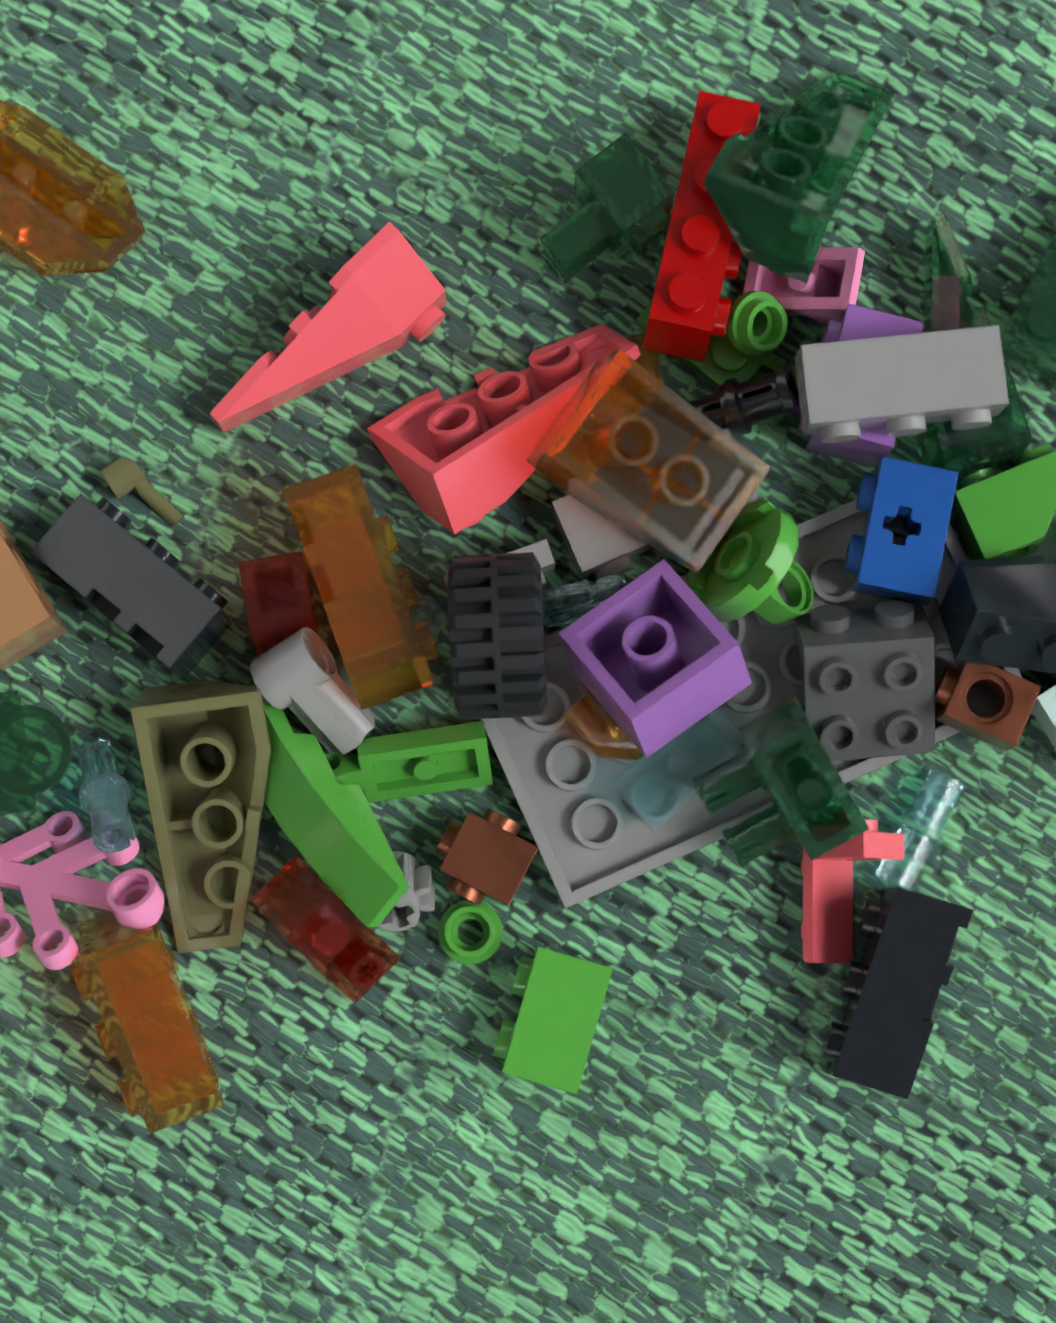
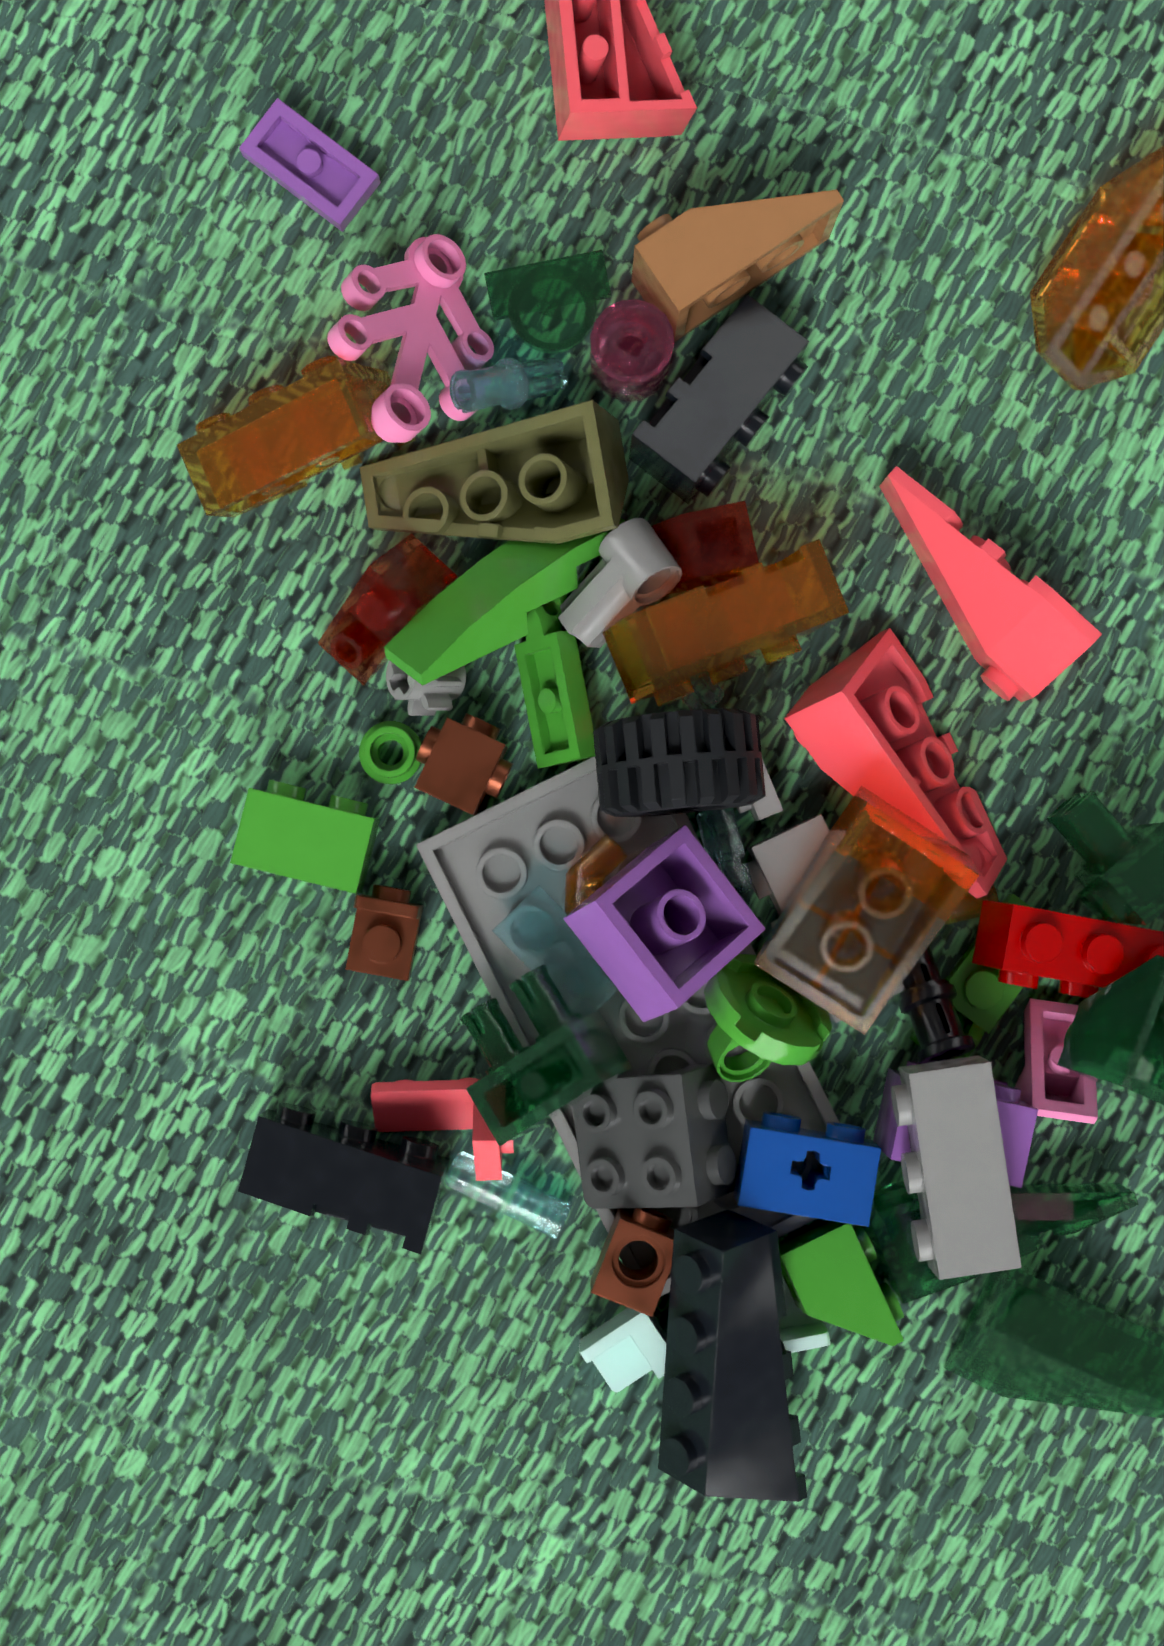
camera: 90 degrees right, 5 degrees up
(78, 670) = (631, 350): none -> clear pink wheel
(125, 476) = (831, 390): olive hand -> none
(653, 945) = (384, 933): none -> copper bracket
(768, 326) = (1011, 1027): bright green plate -> none

